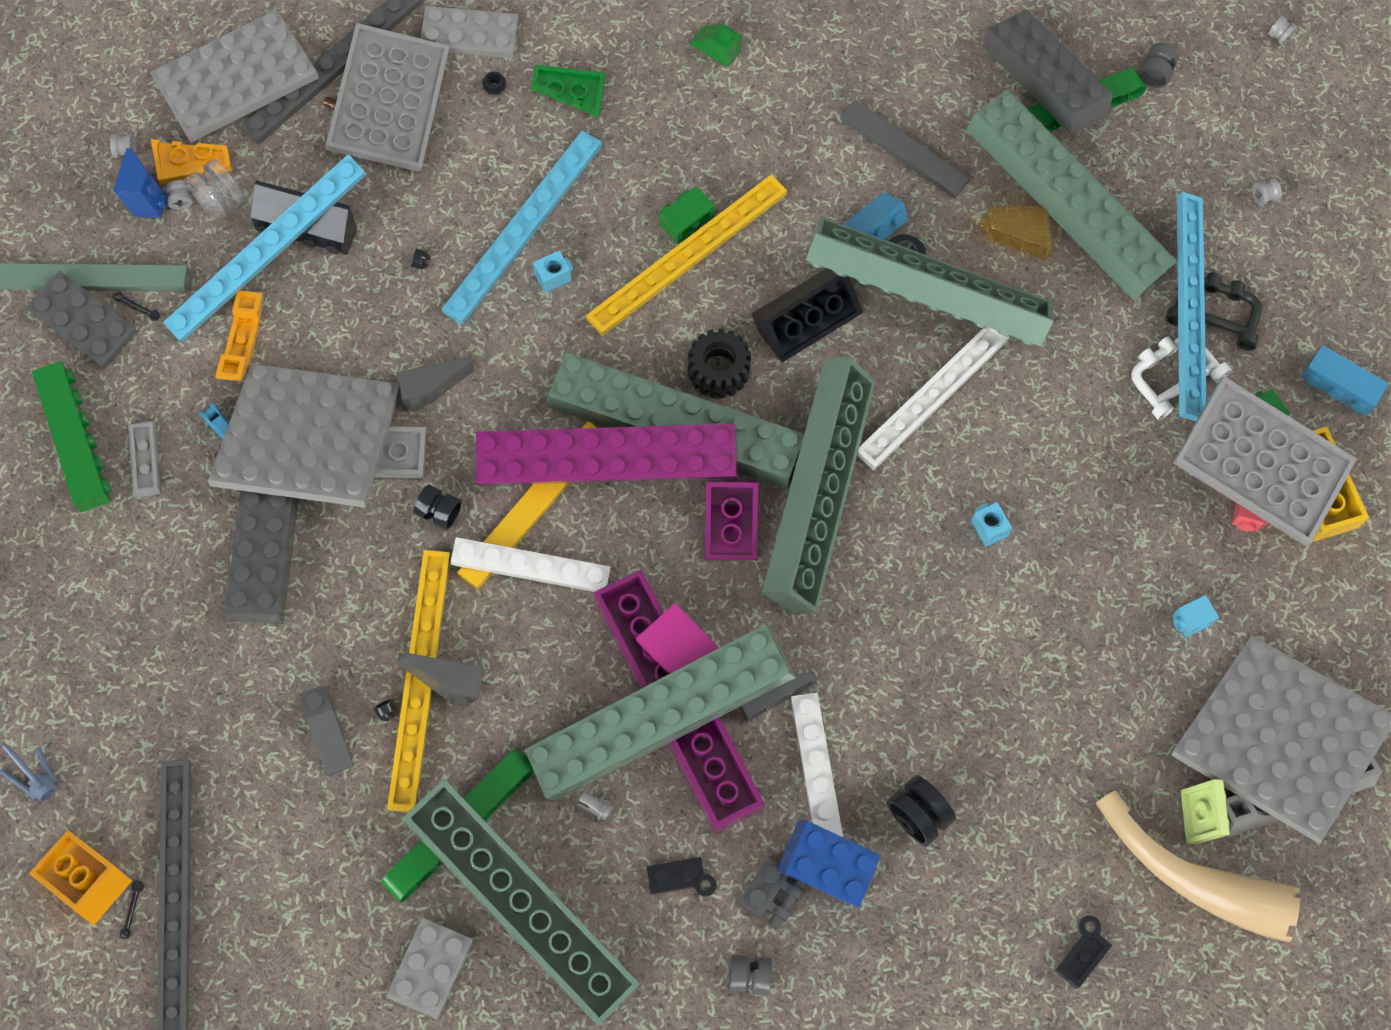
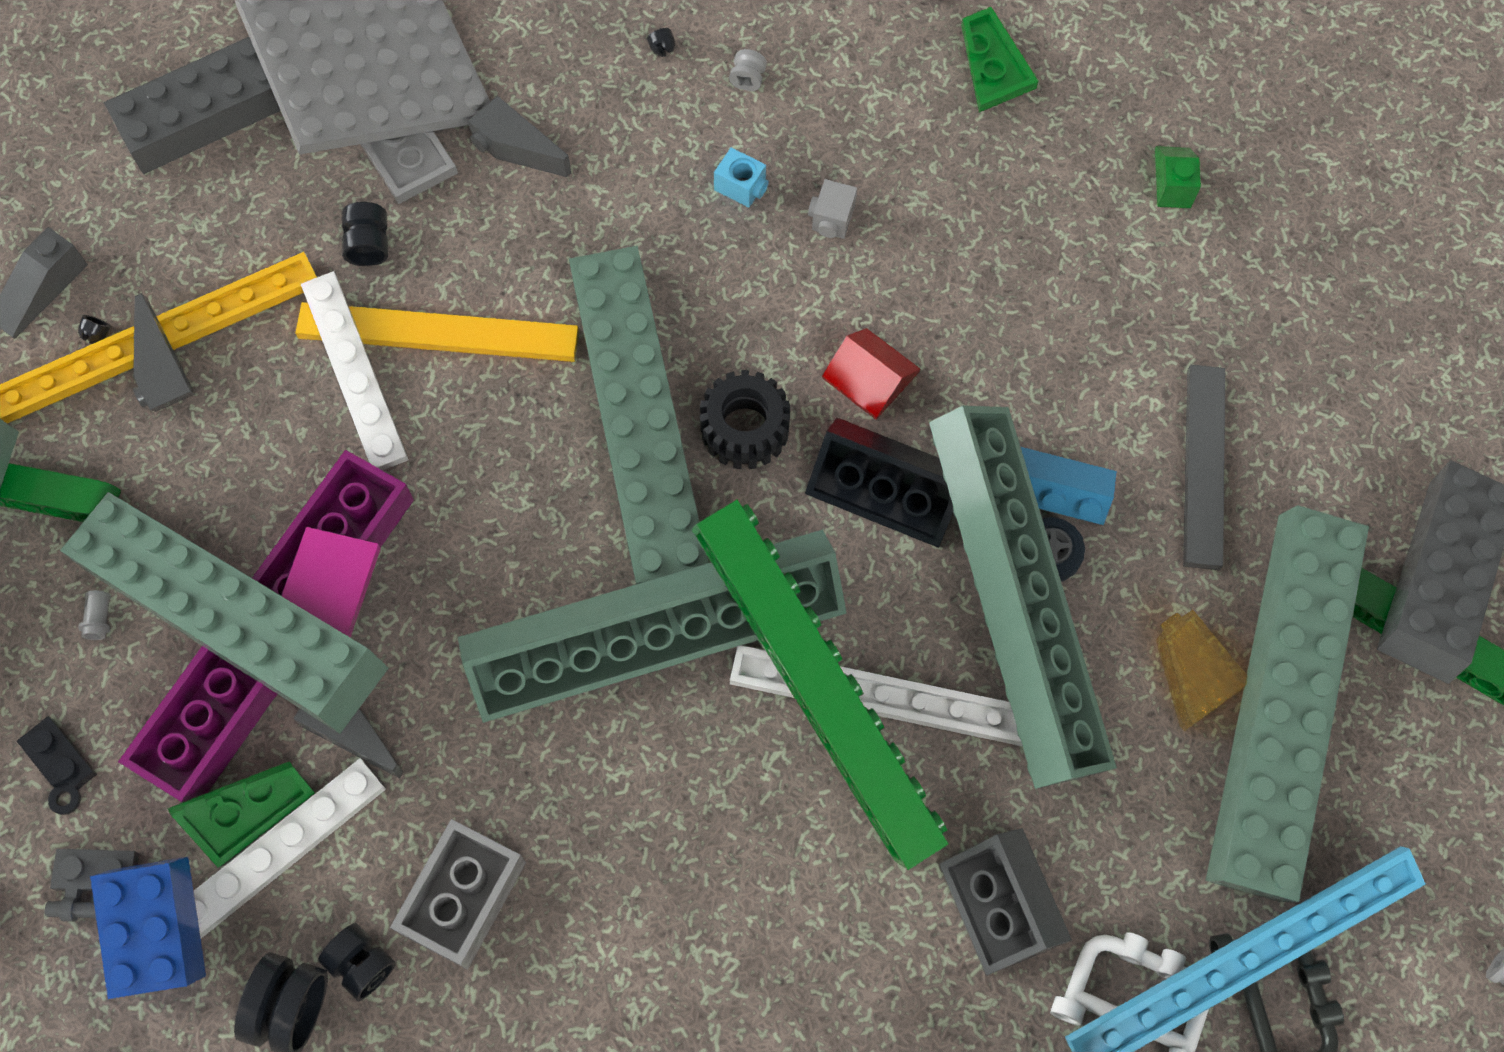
camera: 60 degrees right, 0 degrees up
(478, 222) = (748, 70): none -> light grey wheel
(521, 228) = (780, 118): medium azure plate -> none
(606, 454) = (534, 368): magenta brick -> none
(611, 234) = (833, 209): none -> light grey brick
(686, 214) = (918, 273): green brick -> none
(686, 255) = (871, 305): yellow plate -> none
(731, 281) = (869, 372): none -> slope
(731, 519) = (553, 552): magenta slope -> none
(784, 778) = (242, 811): none -> green wing
(913, 681) = (459, 894): none -> light grey brick
(917, 759) = (346, 952): none -> black wheel
(919, 410) = (820, 686): none -> green brick
(988, 533) = (740, 887): medium azure brick -> none
(1087, 404) = (1004, 901): none -> dark grey slope

